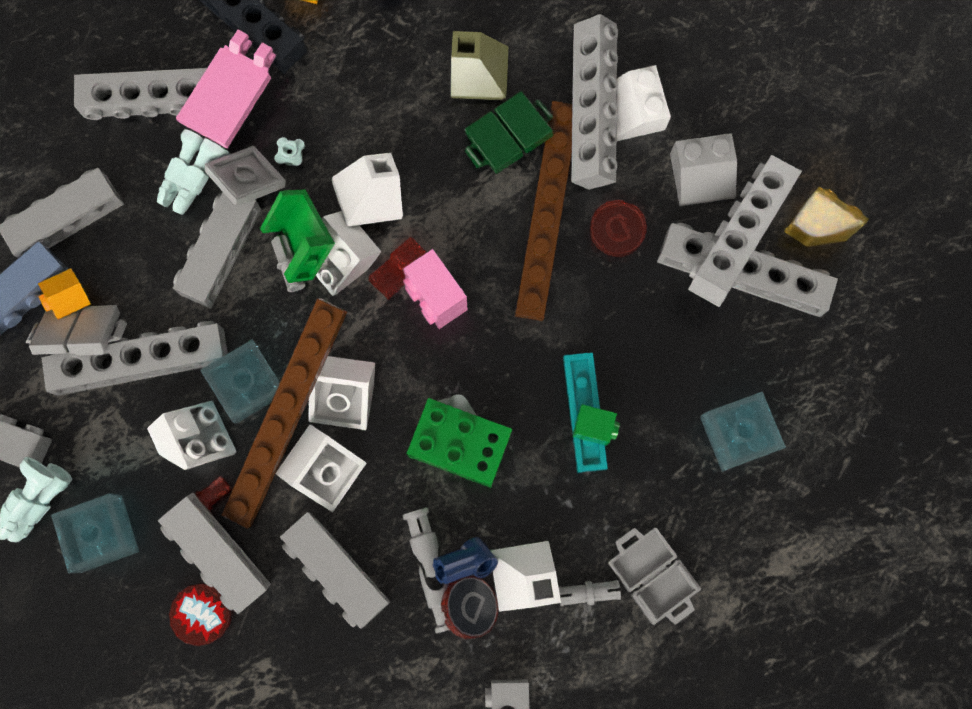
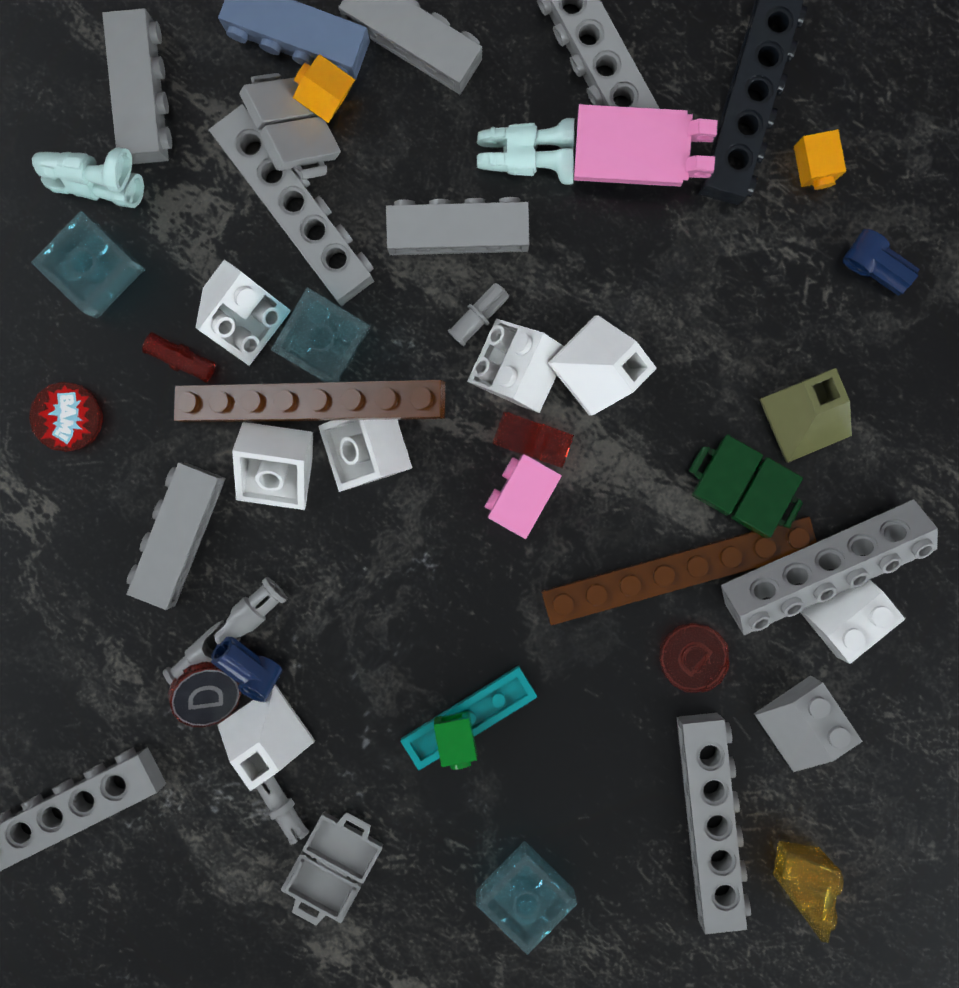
camera: 65 degrees right, 10 degrees up
(214, 553) = (129, 401): light grey brick -> none
(245, 175) = (552, 216): light grey tile -> none
(295, 157) = (604, 259): light aqua plate -> none
(306, 232) = (518, 319): green panel -> none
(459, 440) = (372, 601): green piece -> none
(744, 230) = (833, 817): light grey brick -> none

